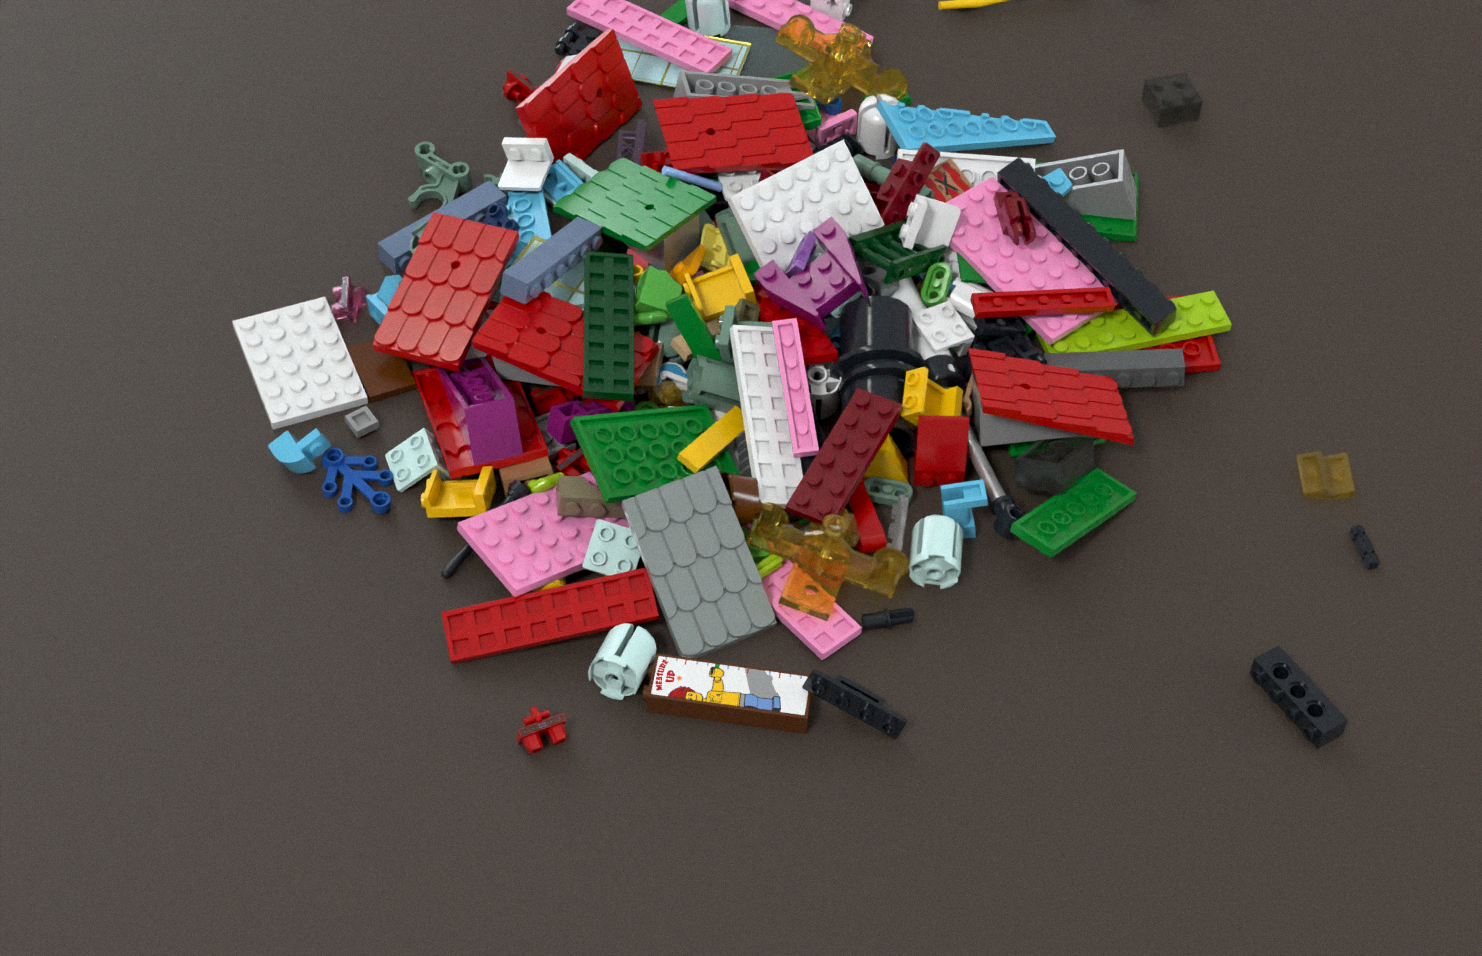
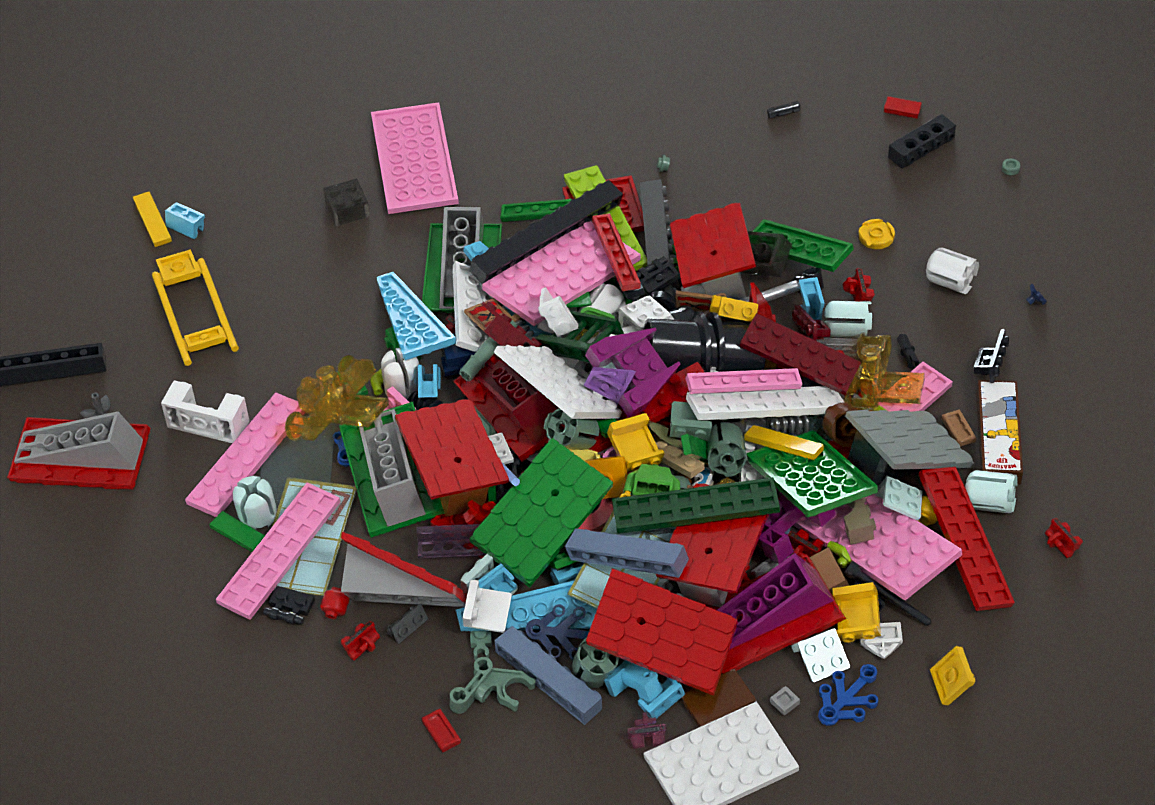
camera: 90 degrees left, 0 degrees up
(299, 455) = (838, 735): medium azure brick -> none
(349, 575) = (952, 675): none -> yellow tile
(396, 147) = (441, 730): none -> red tile
(427, 531) = (886, 643): none -> white slope
(745, 651) = (958, 428): none -> medium nougat plate
(867, 140) = (429, 383): none -> medium azure piece
(913, 498) = (811, 327): none -> dark red bracket
(979, 784) = (1035, 296): none -> dark blue plant
(1005, 575) = (858, 286): none -> red hips
(1014, 217) = (535, 263): dark red plate -> none
(1025, 695) = (951, 270): none -> white cylinder
(1113, 620) = (876, 234): none -> yellow tile
(1158, 263) = (530, 210): none -> green tile
(1247, 401) = (663, 163): none -> sand green plate
(1251, 806) = (1011, 166): none -> sand green tile
(1255, 165) = (414, 158): none -> bright pink plate
(1325, 476) = (722, 126): clear yellow slope -> none
(1377, 690) = (902, 107): none -> red tile

